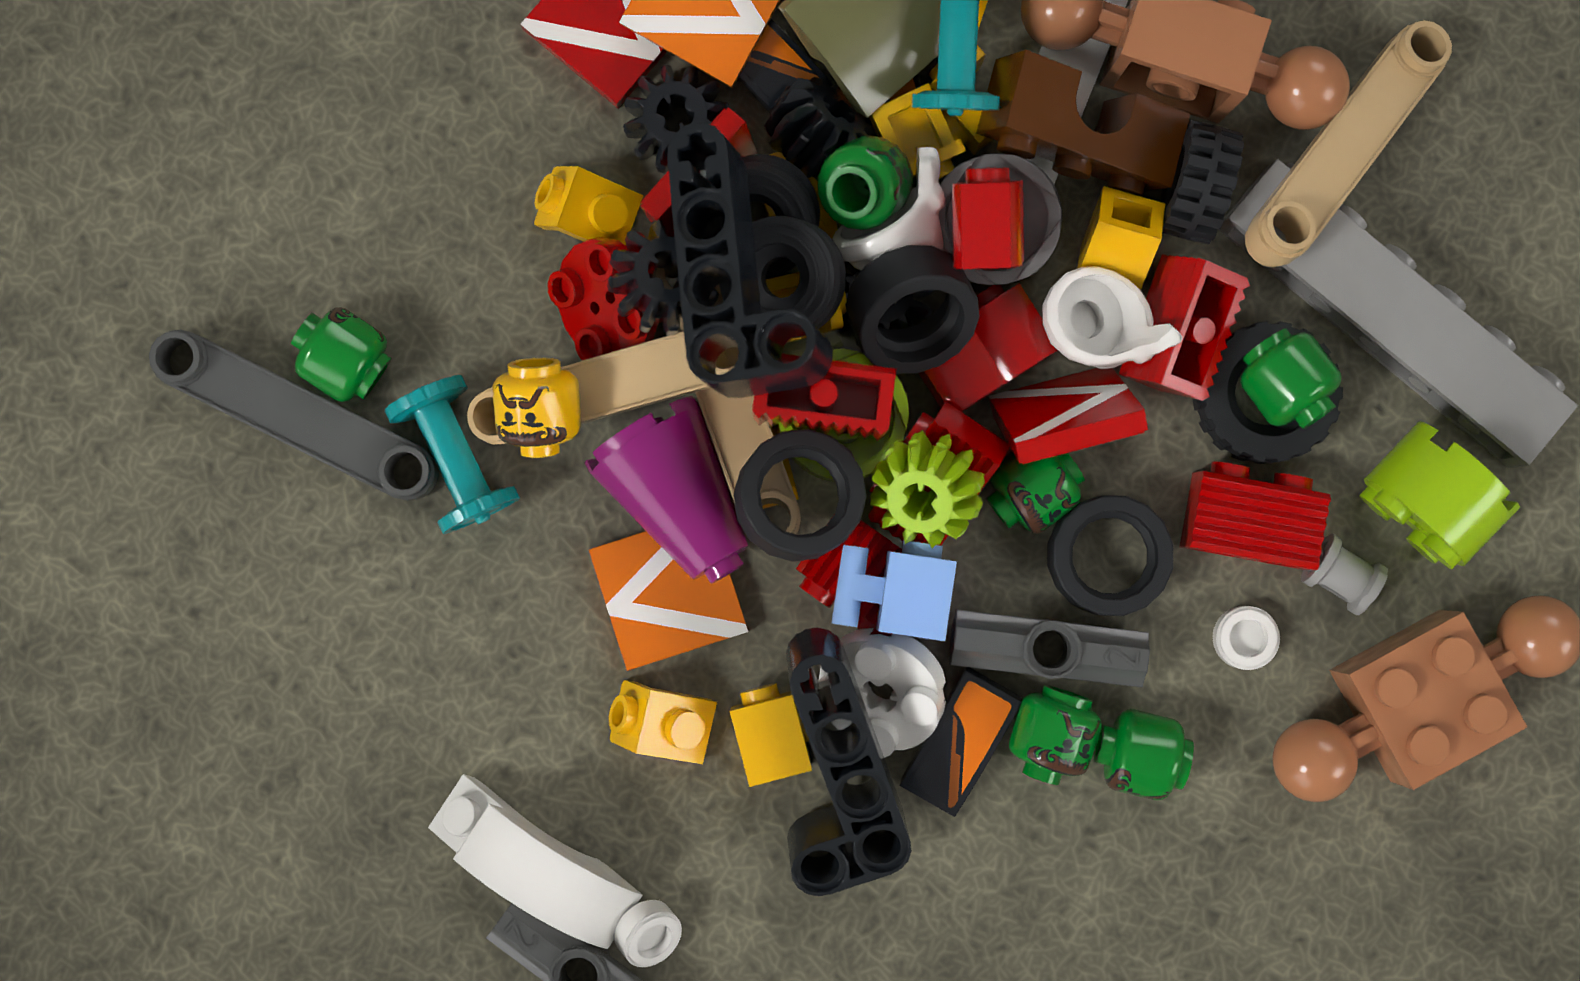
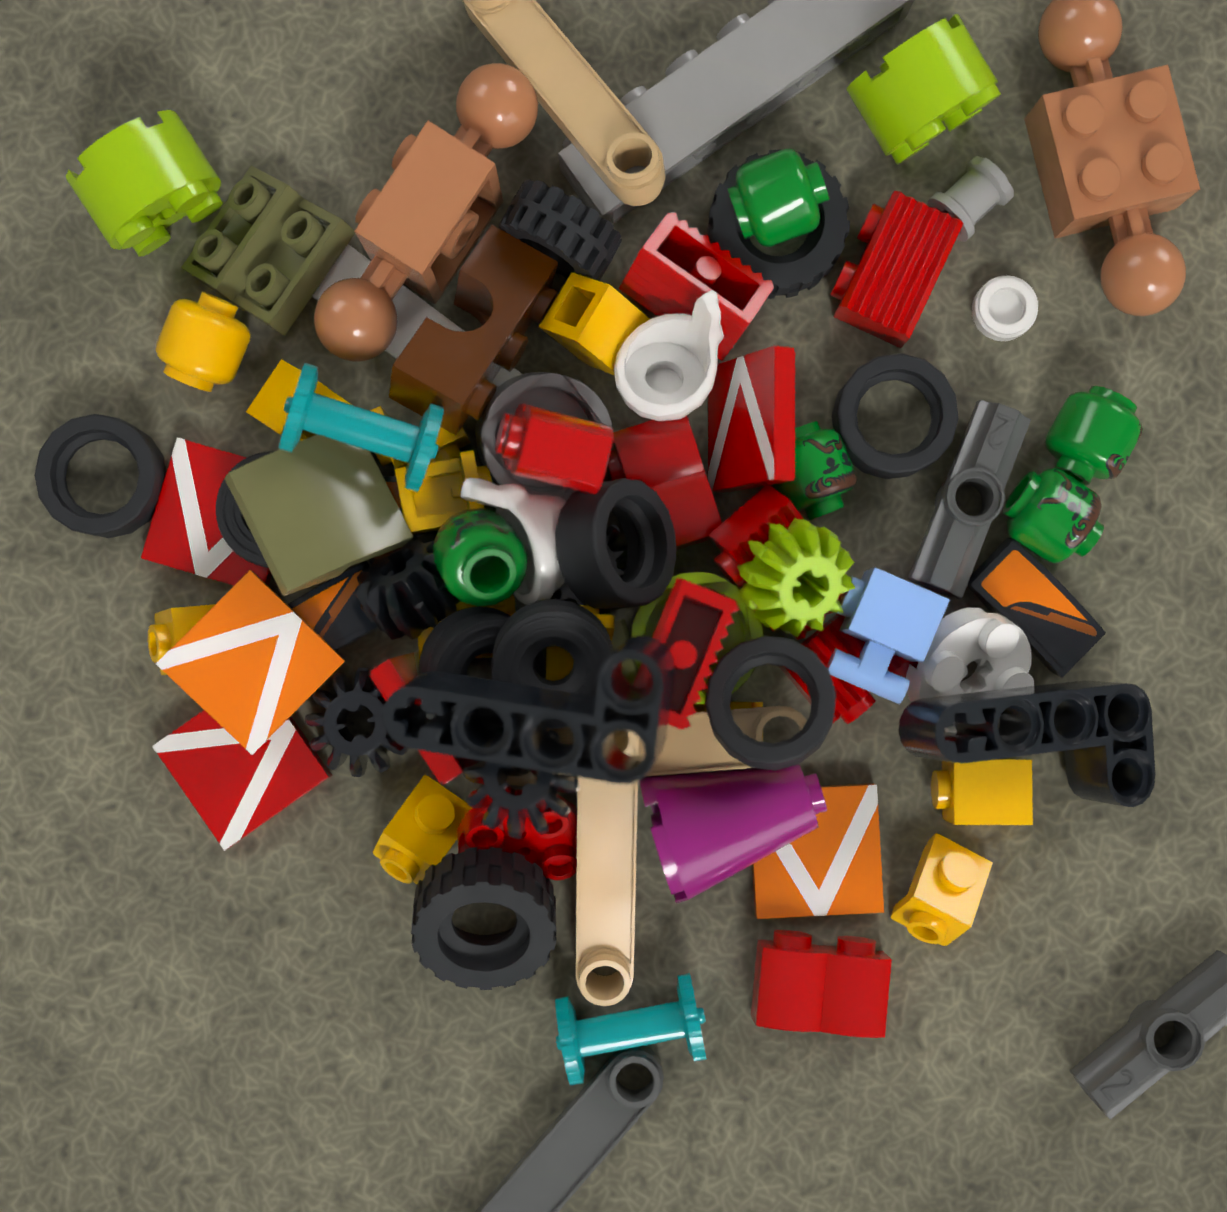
camera: 75 degrees left, 0 degrees up
(340, 354) = (502, 1113): green head -> none
(480, 289) = (484, 878): none -> black tyre
(532, 867) = (1055, 1059): white arch -> none
(536, 406) = (611, 936): yellow head -> none
(541, 627) = (821, 985): none -> red brick
(647, 933) = (1143, 959): white tile -> none

